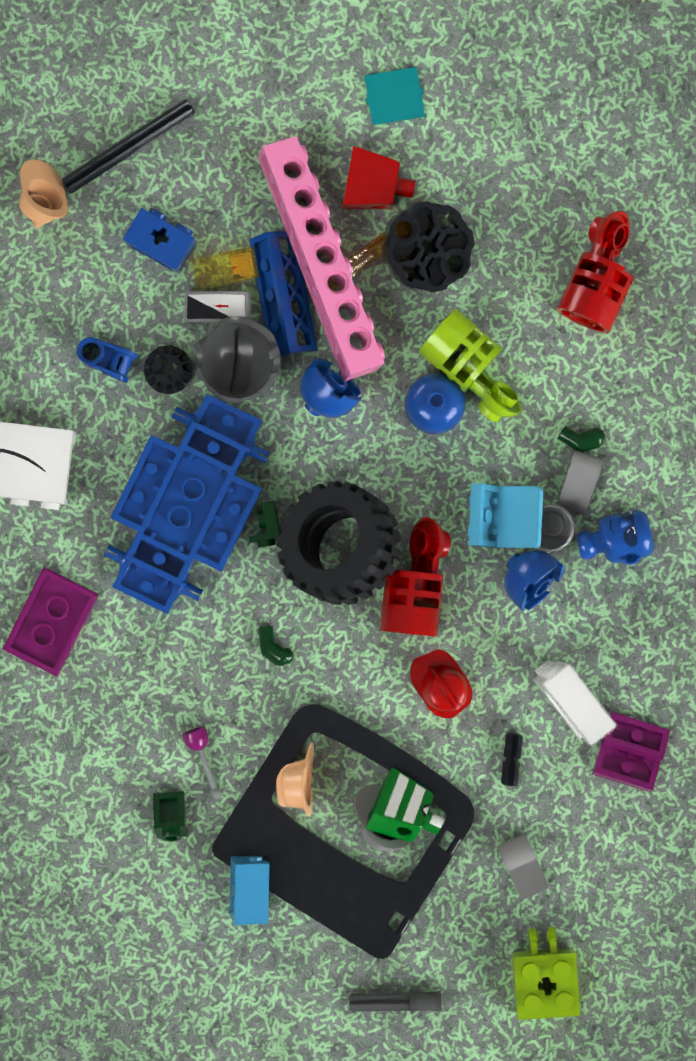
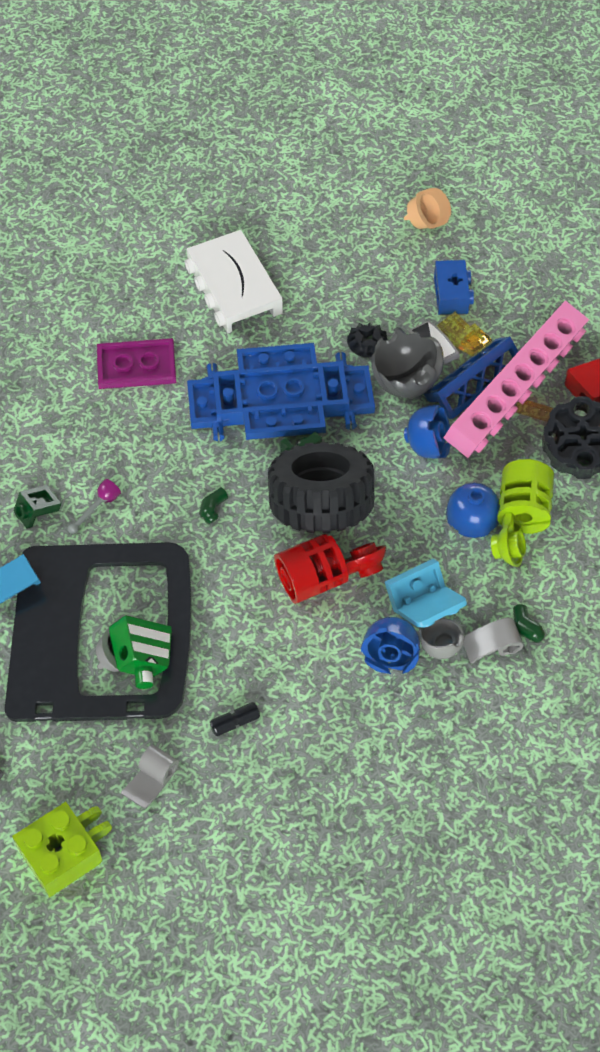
camera: 60 degrees right, 30 degrees down
(108, 359) = (347, 297): blue piece -> none
(128, 146) = (500, 243): black axle -> none
(295, 783) = (117, 571): light nougat piece -> none
(441, 683) = (261, 636): red piece -> none
(573, 701) = (313, 707): white arch -> none
(621, 537) = (470, 690): blue piece -> none
(631, 752) = (302, 809): magenta slope -> none

